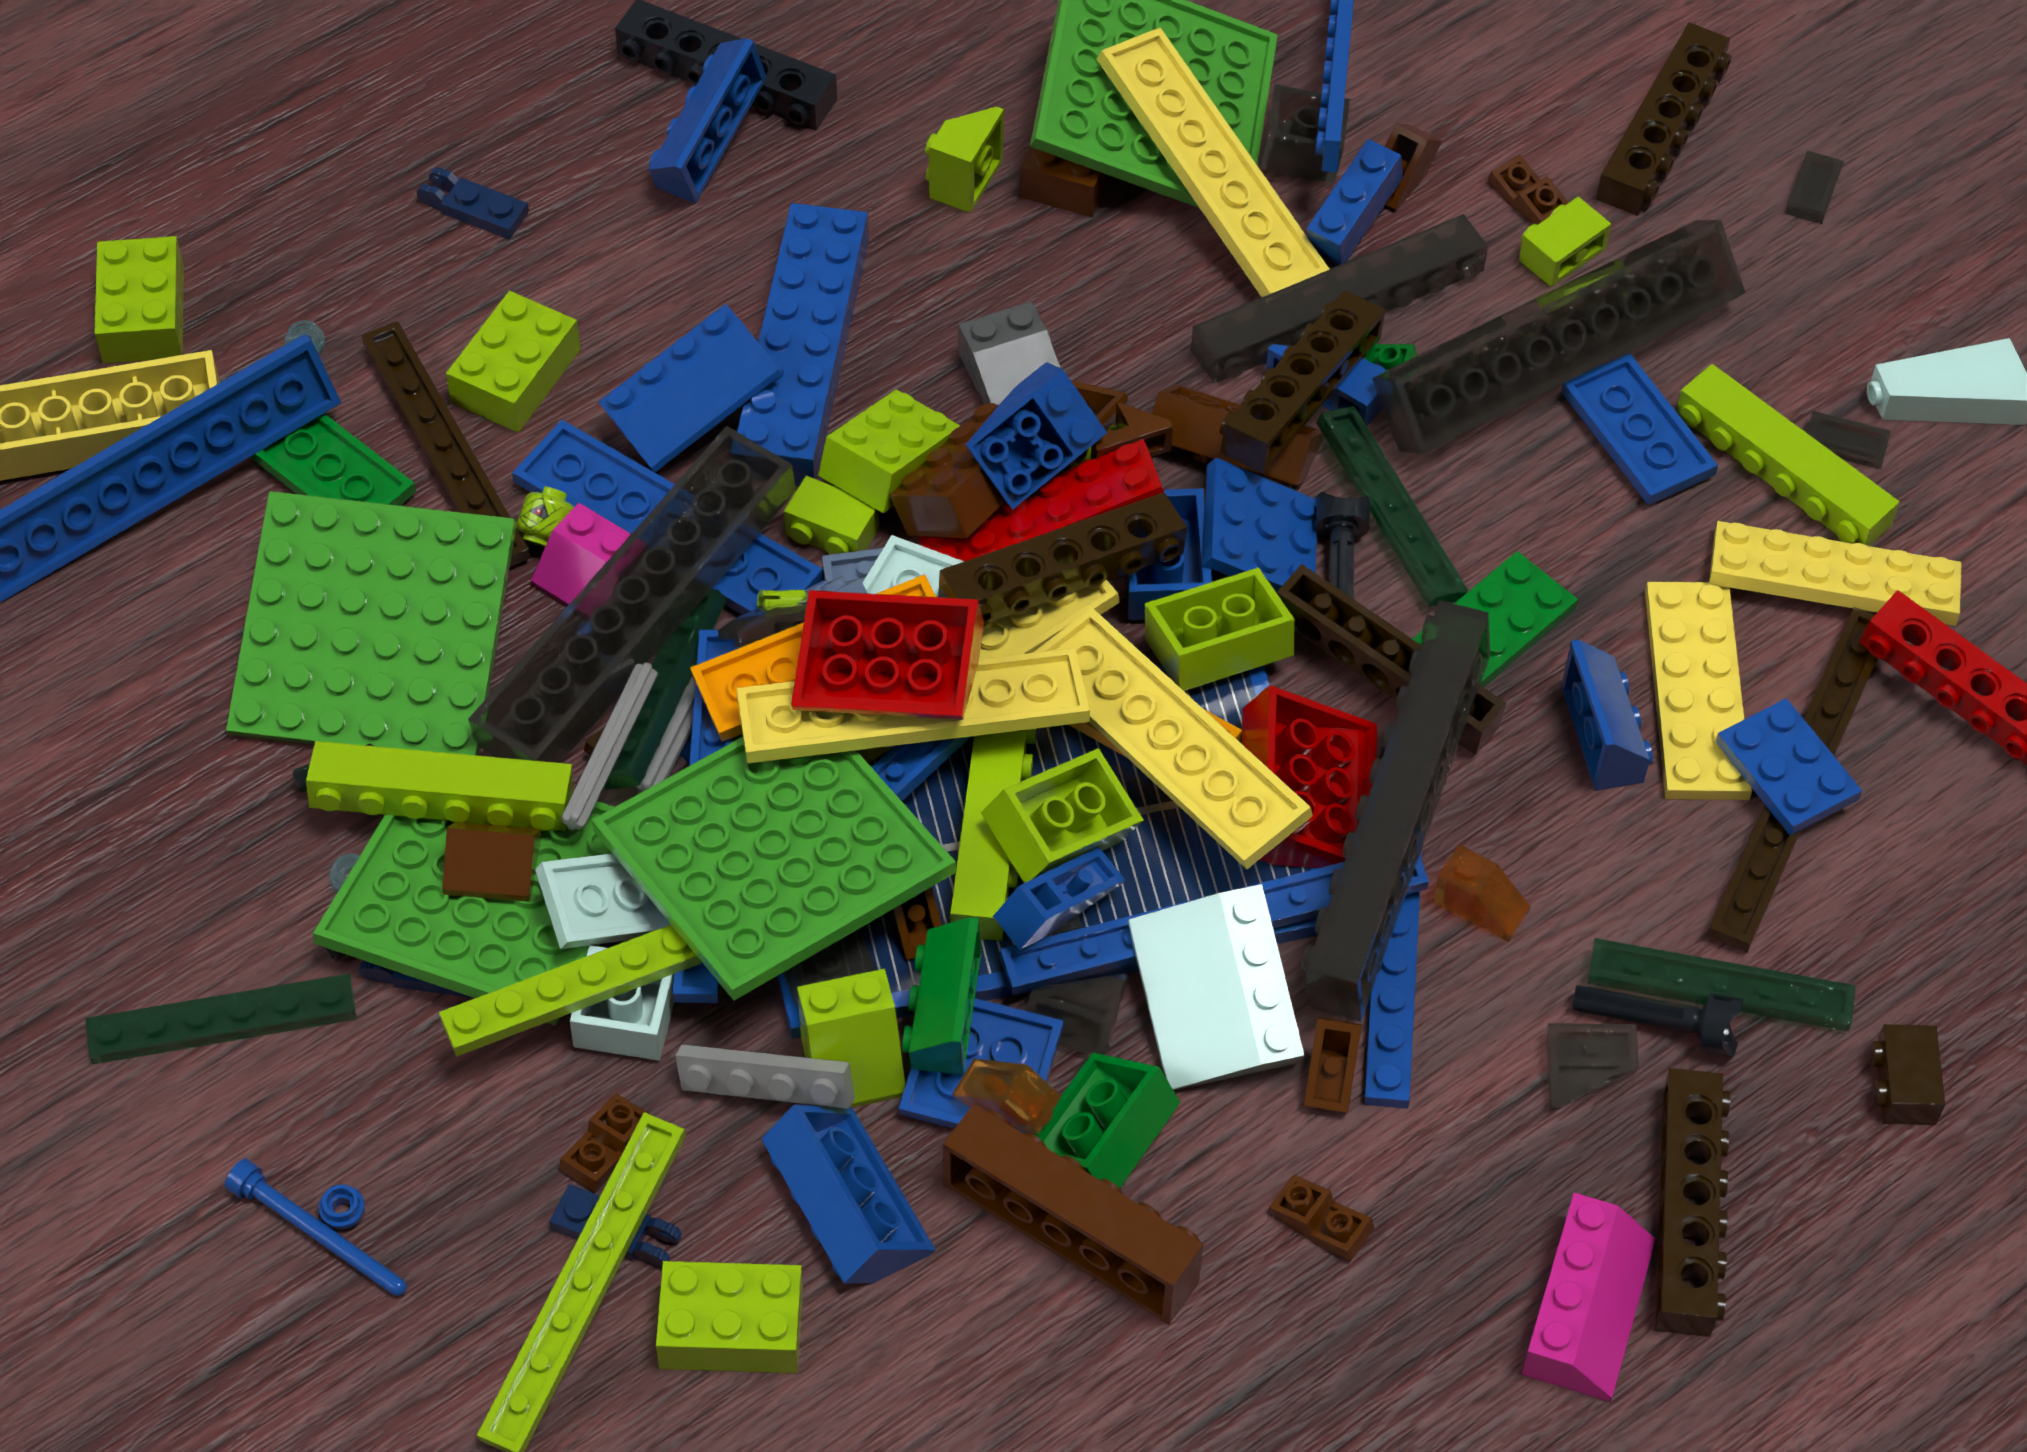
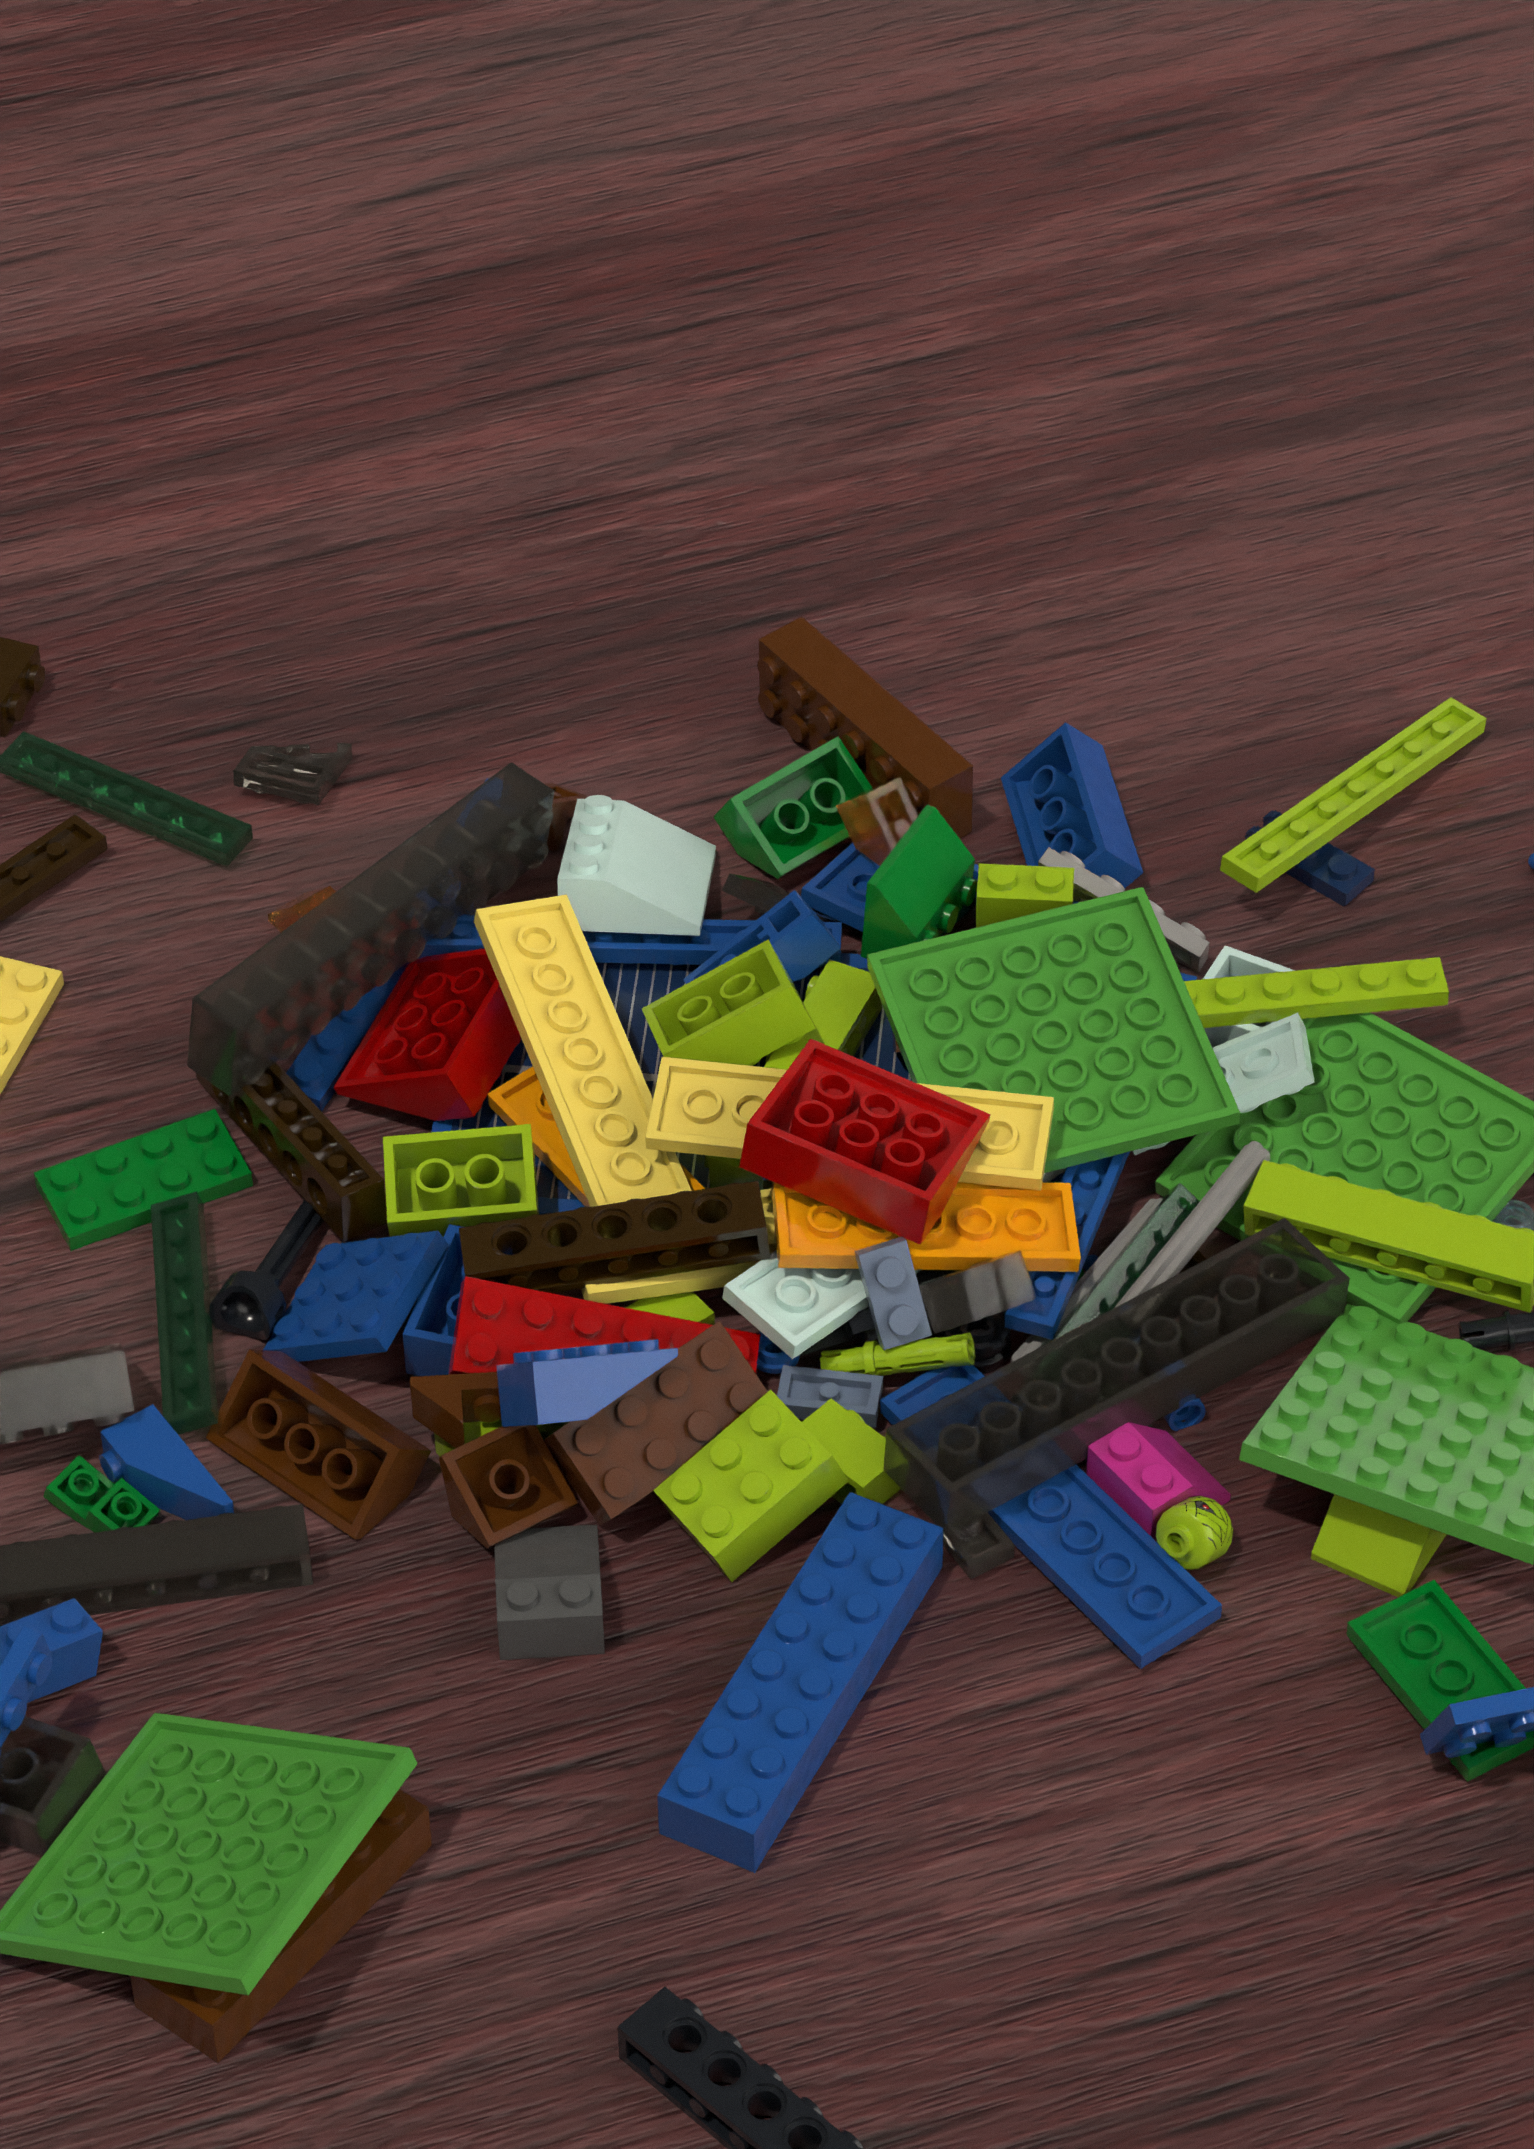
camera: 160 degrees left, 10 degrees down
(308, 328) = (1453, 1855): clear light blue plate -> none
(435, 428) = (1300, 1679): dark brown plate -> none
(473, 203) = (1176, 2013): dark blue hinge -> none
(490, 861) = (1355, 1150): reddish brown slope -> none
(513, 361) = (1182, 1748): lime brick -> none
(600, 1148) = (1304, 927): reddish brown slope -> none
(690, 387) = (971, 1615): blue slope -> none
(708, 120) = (824, 1979): blue slope -> none
(729, 1317) = (1219, 749): lime brick -> none
(965, 157) = (490, 1853): lime slope -> none
(1211, 162) = (182, 1732): light yellow plate -> none
(1301, 381) = (196, 1404): dark brown brick -> none
(1319, 1218) = (617, 716): reddish brown slope -> none
(1590, 1299) = (415, 600): dark pink slope -> none
(1604, 718) = (88, 1033): blue slope -> none
(1679, 1306) = (269, 642): dark brown brick -> none
(1710, 1022) = (164, 761): black piece -> none

